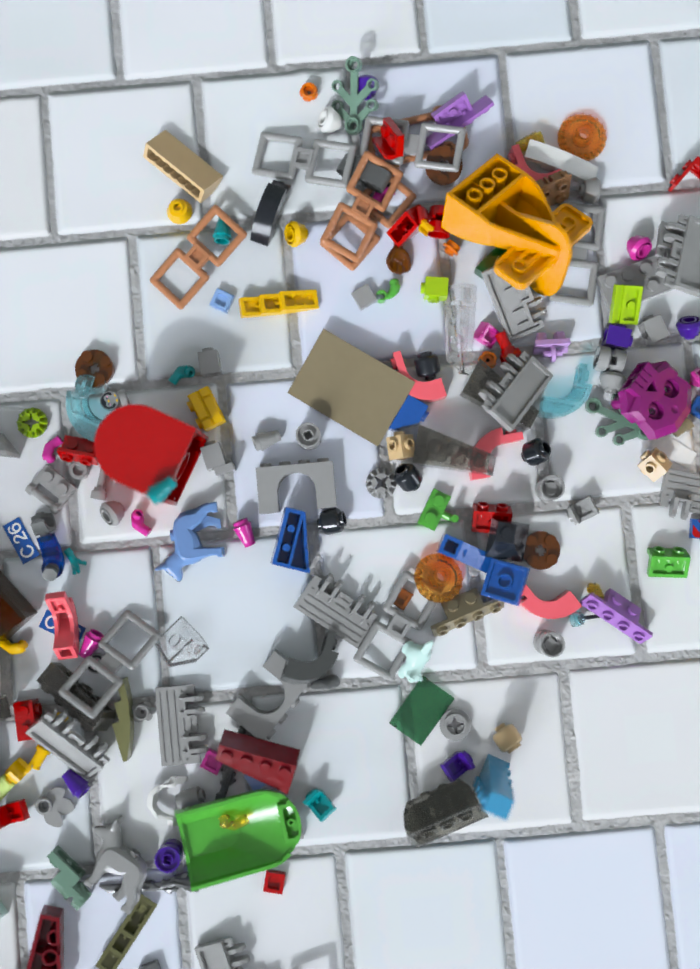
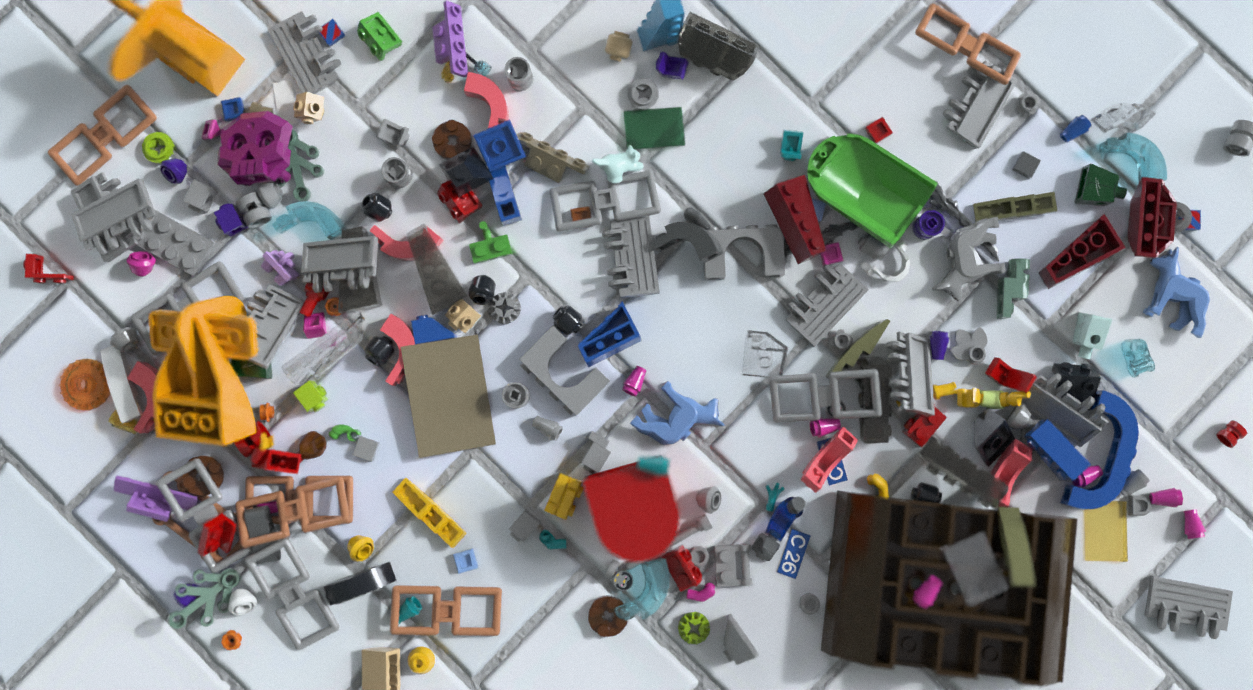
camera: 140 degrees left, 0 degrees up
(137, 521) = (700, 472): dark pink arm -> none
(234, 825) = (860, 194): clear yellow arm -> none
(430, 585) = (550, 204): clear orange gear -> none
(556, 188) = (144, 368): medium nougat hinge -> none
(625, 304) = (197, 234): lime plate -> none

